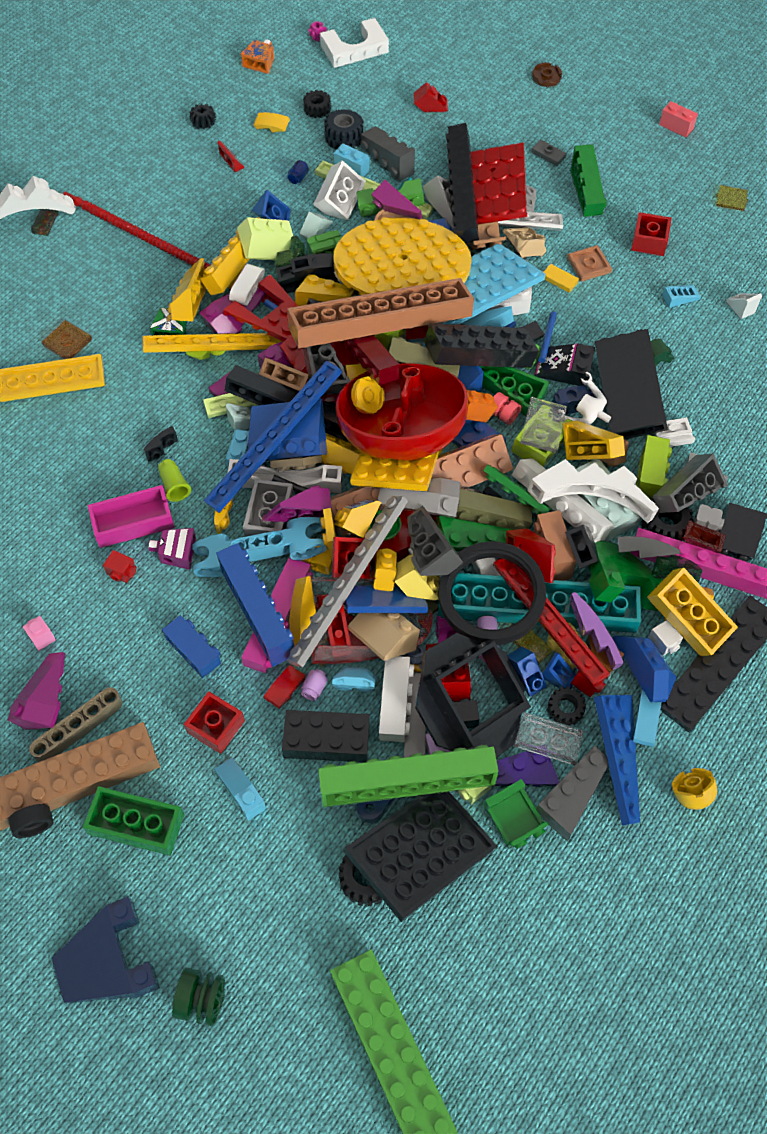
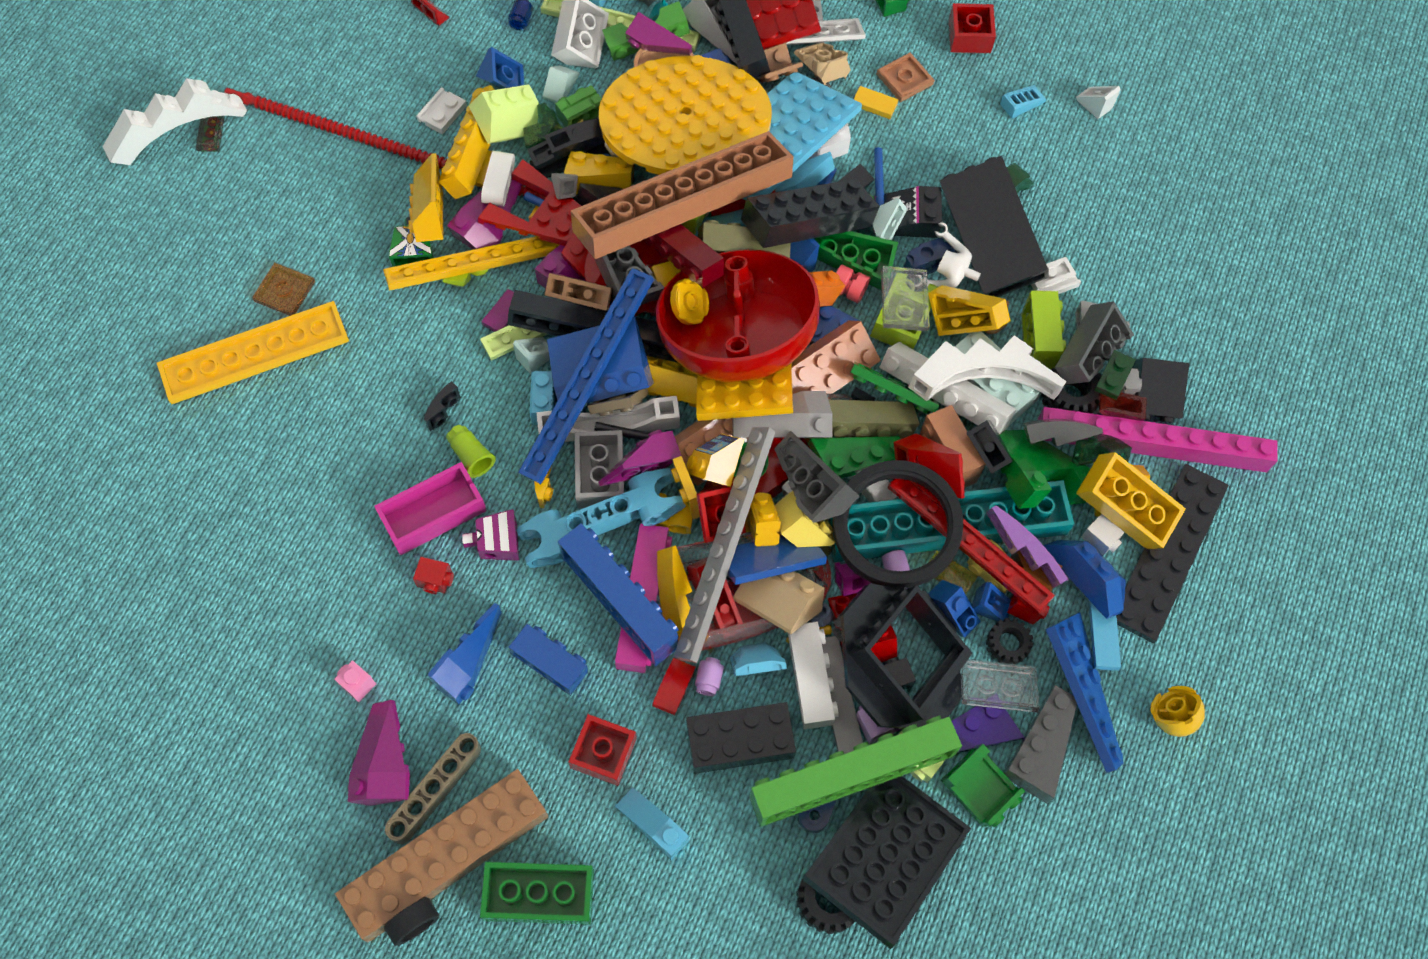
camera: 15 degrees left, 5 degrees up
(121, 638) = (459, 669): none -> blue wedge
(219, 232) = (441, 110): none -> white plate
(296, 296) = (564, 185): none -> light grey slope
(546, 363) = (889, 218): none -> light aqua slope
(701, 510) = (1115, 375): none -> dark green plate

